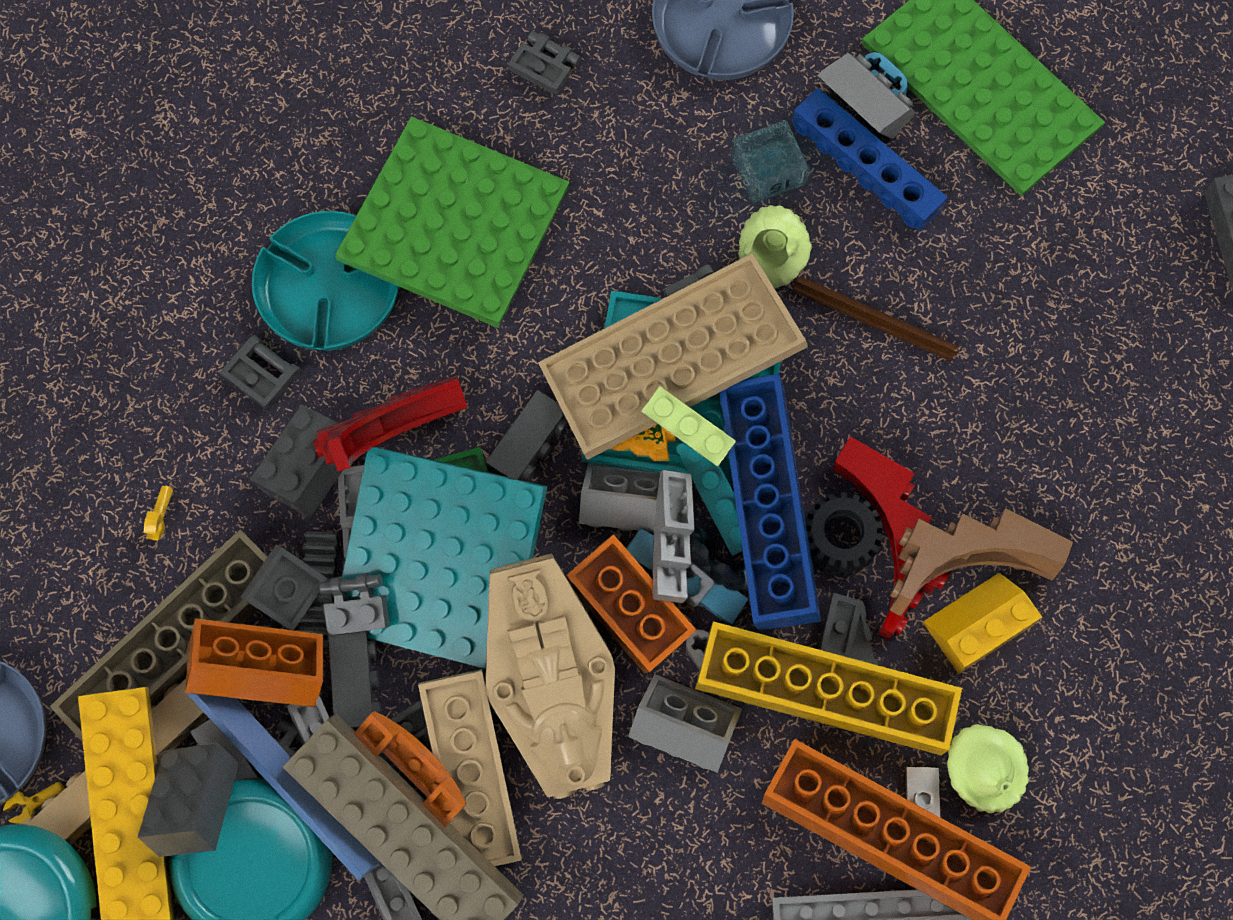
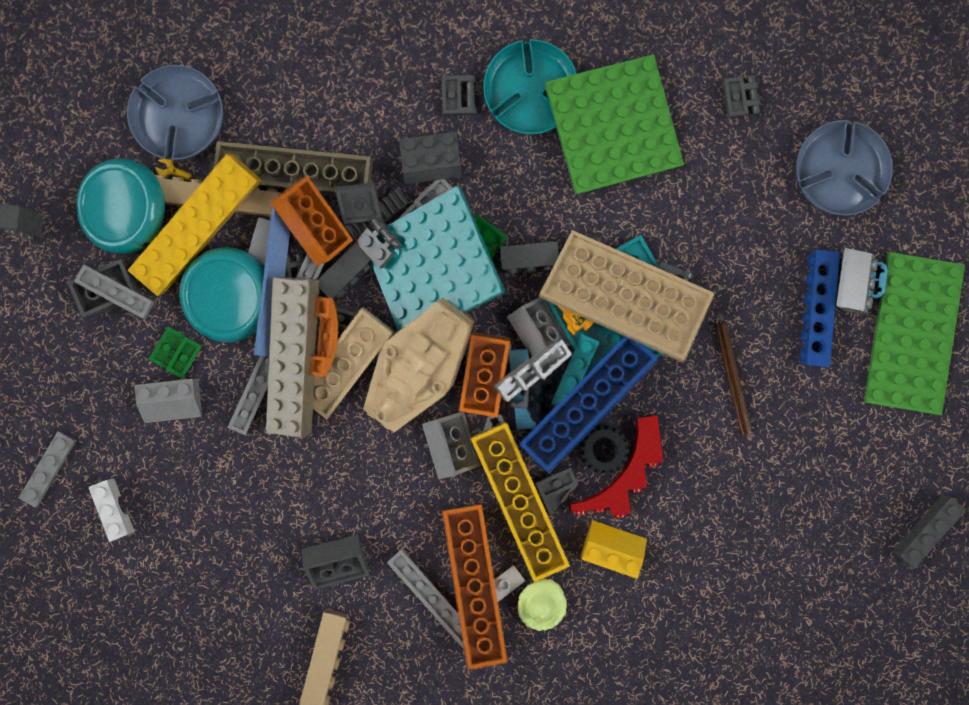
camera: 50 degrees right, 15 degrees up
(154, 522) = (343, 110): yellow bar -> none
(188, 800) = (224, 246): dark grey brick -> none
(370, 427) = (496, 186): red arch -> none
(688, 426) = (593, 335): yellowish green plate -> none
(769, 161) = (777, 259): clear light blue brick -> none
(777, 243) = (732, 298): yellowish green piece -> none
(1004, 542) = (664, 532): medium nougat arch -> none

